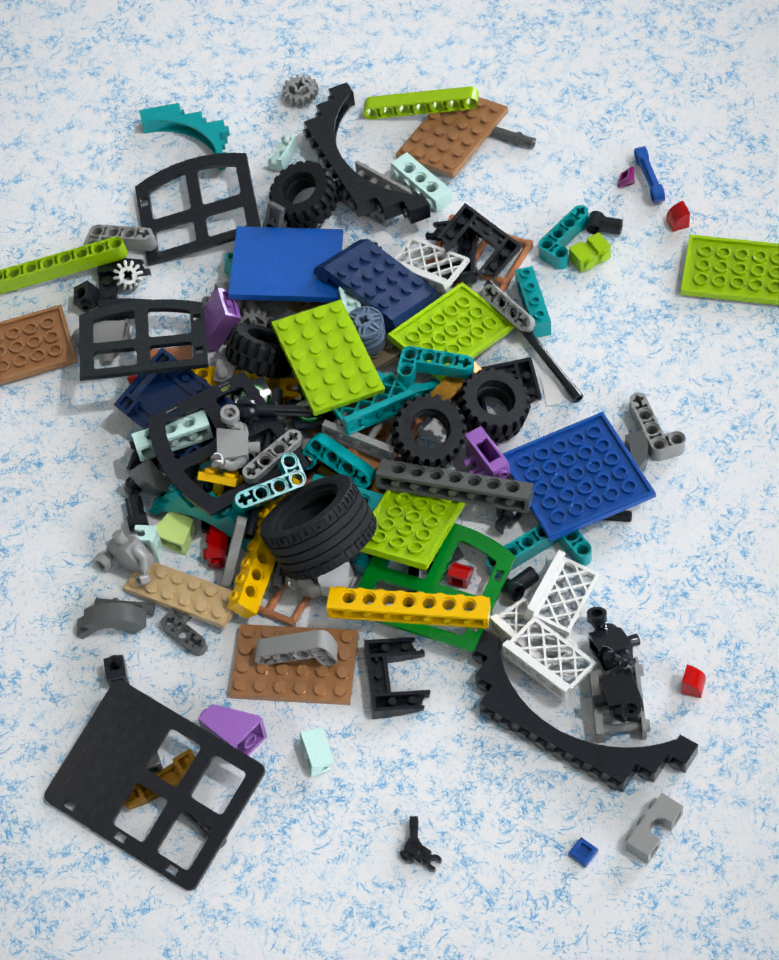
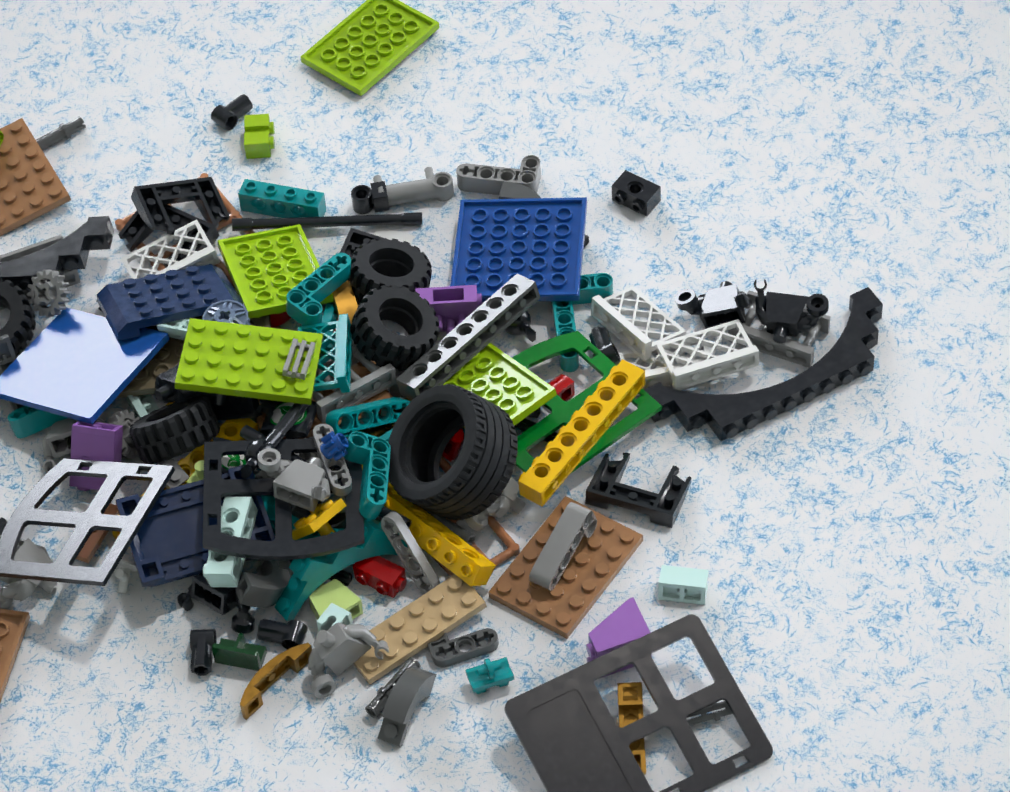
camera: 65 degrees left, 5 degrees down
(74, 523) = (293, 658): none -> pearl gold slope
(103, 471) = (201, 647): none -> black piece
(107, 498) = (239, 653): none -> dark green panel
(113, 663) = (472, 731): black brick -> none
(162, 662) = (489, 675): none -> teal hips
(273, 448) = (334, 446): none -> blue gear
(339, 211) = (48, 293): none -> light grey gear
(341, 381) = (301, 346): none -> light grey tile
(414, 848) = (838, 548): black piece -> none
(421, 181) = (44, 225): light aqua brick -> none
(508, 307) = (280, 217): light grey beam -> none
(553, 245) = (226, 162): teal beam -> none
(581, 361) = (382, 196): none -> light grey piece
(583, 852) = (919, 423): blue tile -> none
(627, 177) = (188, 72): magenta slope -> none
(656, 190) = (202, 54): blue piece -> none
(663, 813) = (935, 372): light grey arch -> none
(678, 216) = (272, 55): red brick -> none
(693, 682) = (795, 268): red brick -> none
(698, 517) = (636, 193): none -> black brick

